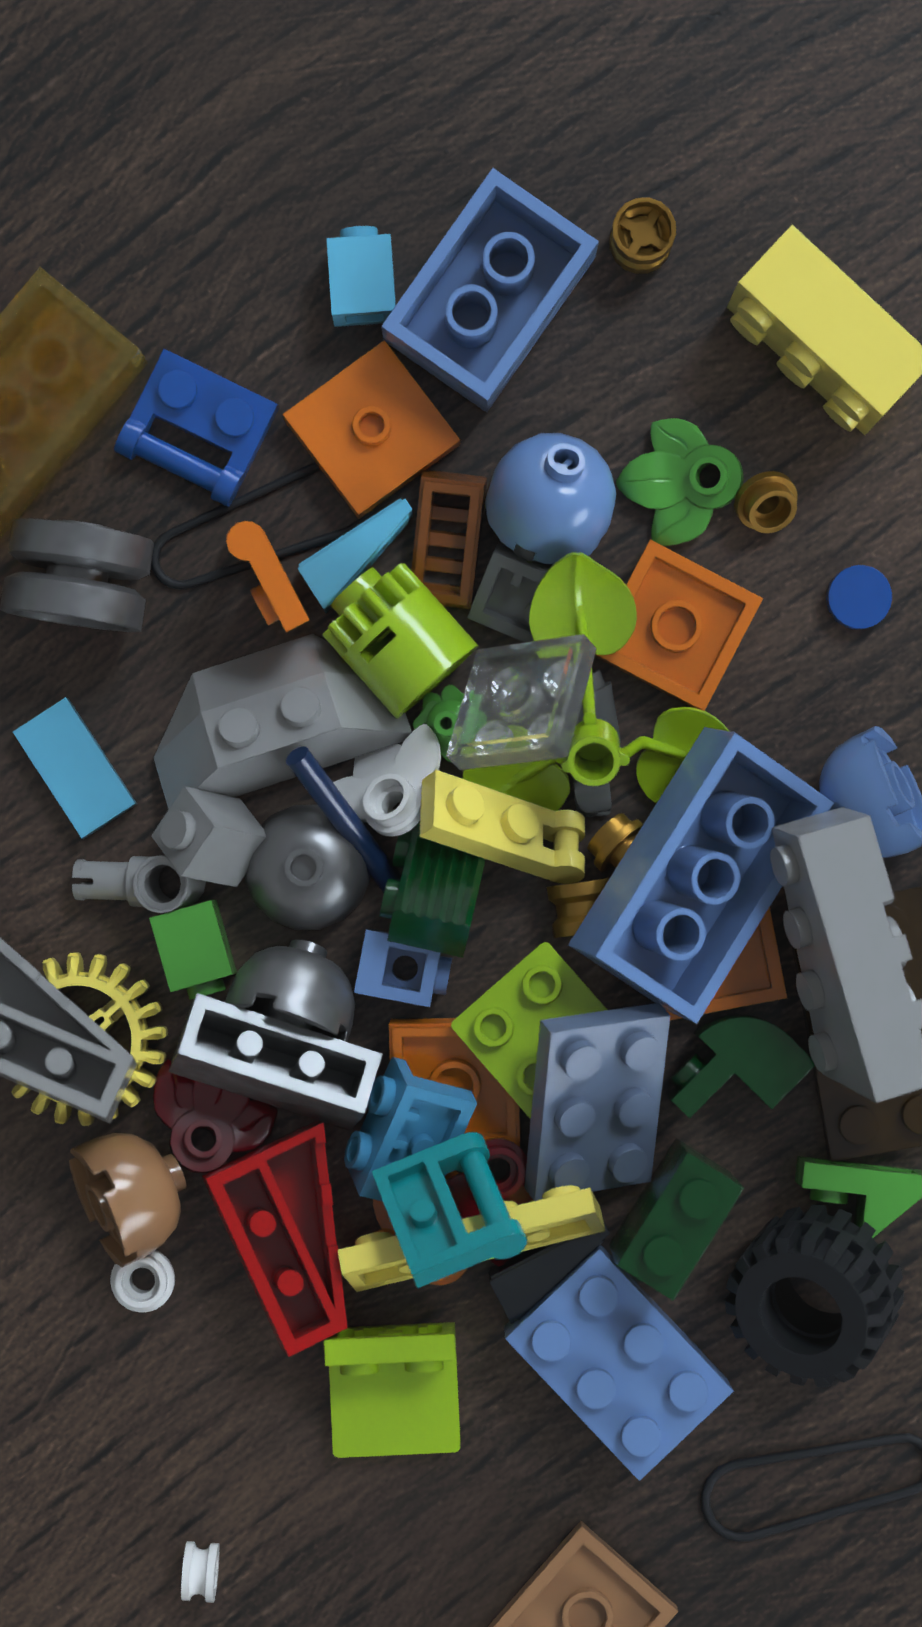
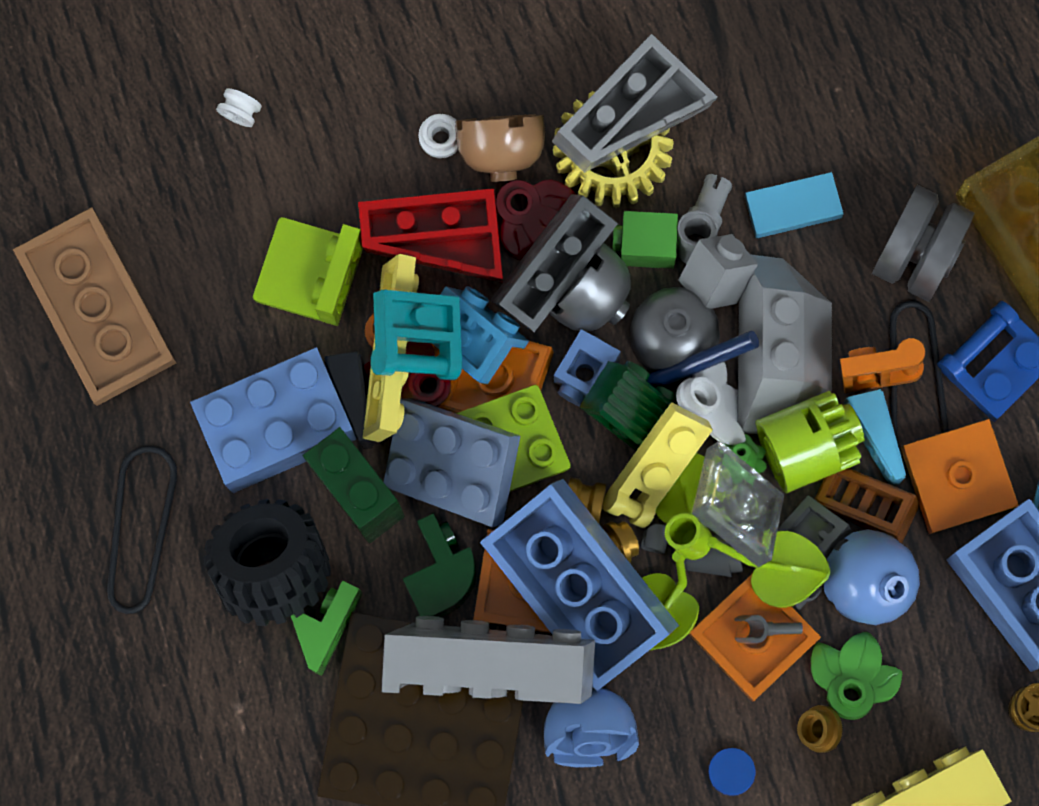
camera: 115 degrees right, 10 degrees down
(671, 619) = (761, 629): none -> dark grey hand

